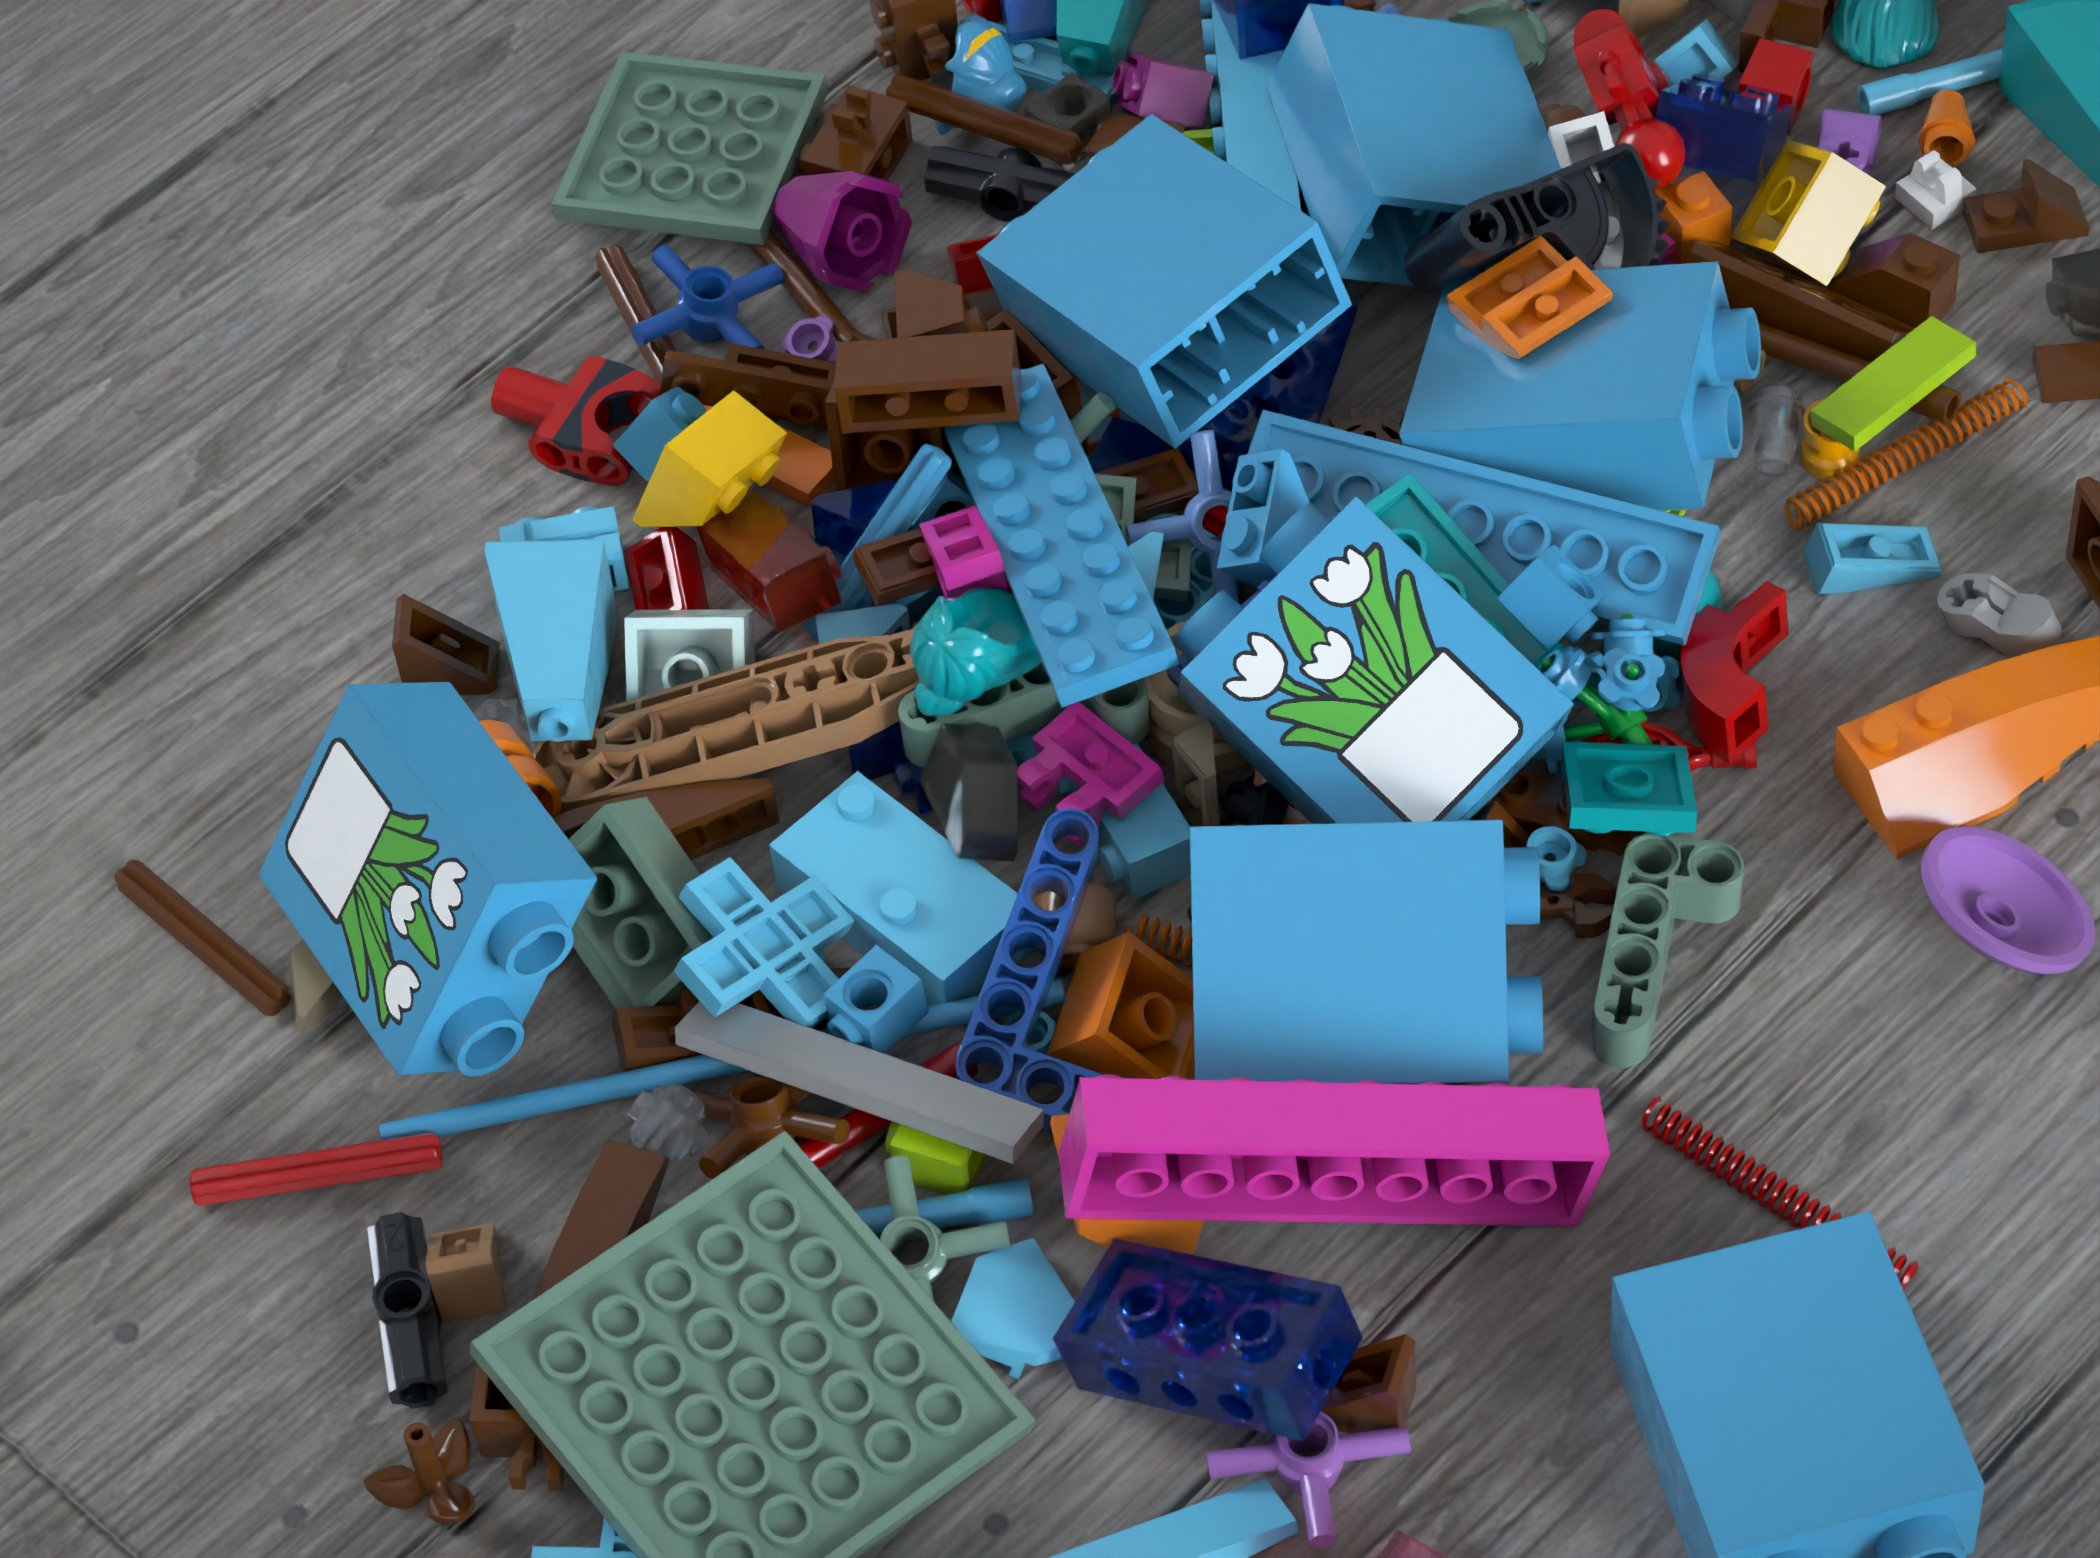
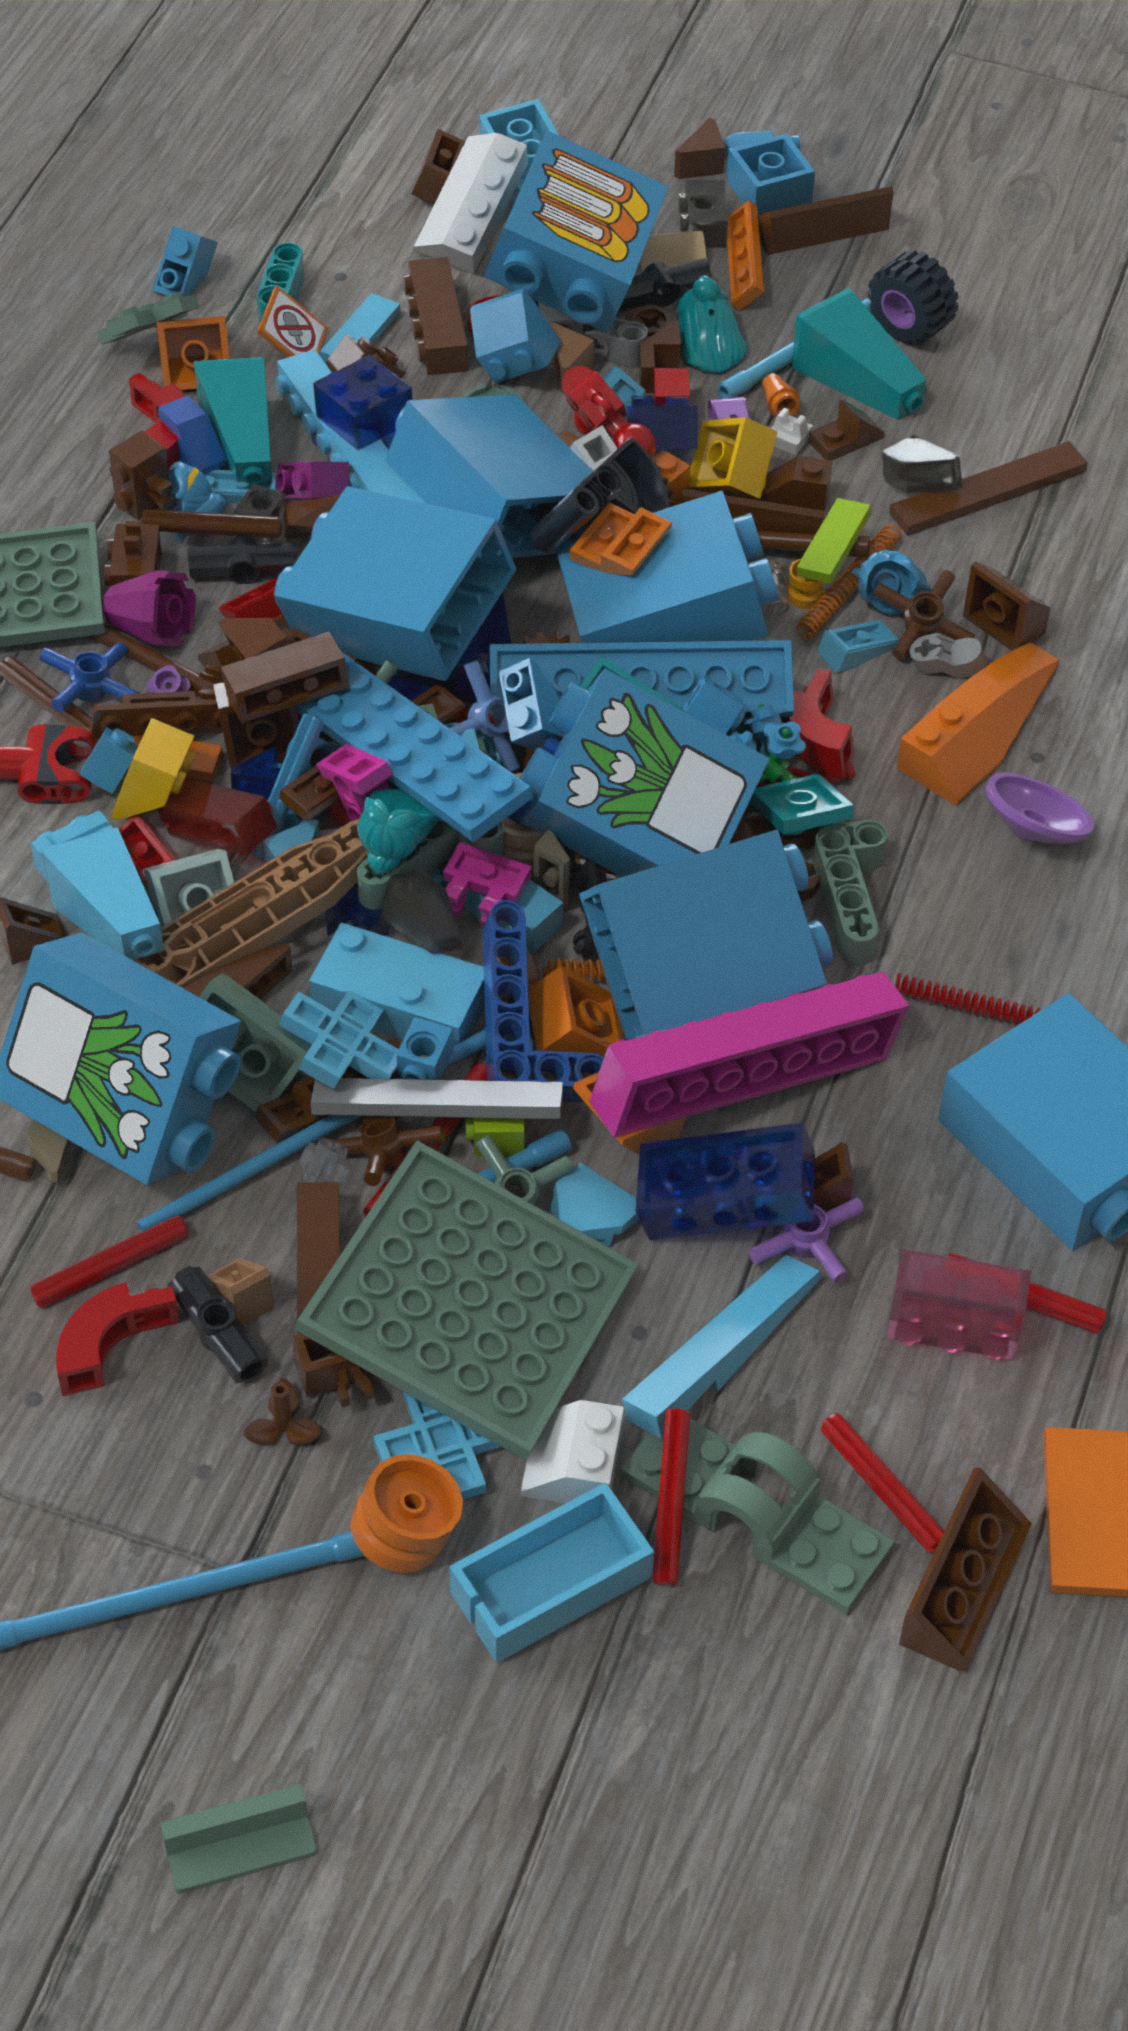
camera: 30 degrees left, 0 degrees up
(247, 1260) = (101, 1325): none -> red arch
(1967, 478) = (895, 572): none -> dark azure hair
(1996, 519) = (923, 602): none -> reddish brown bar

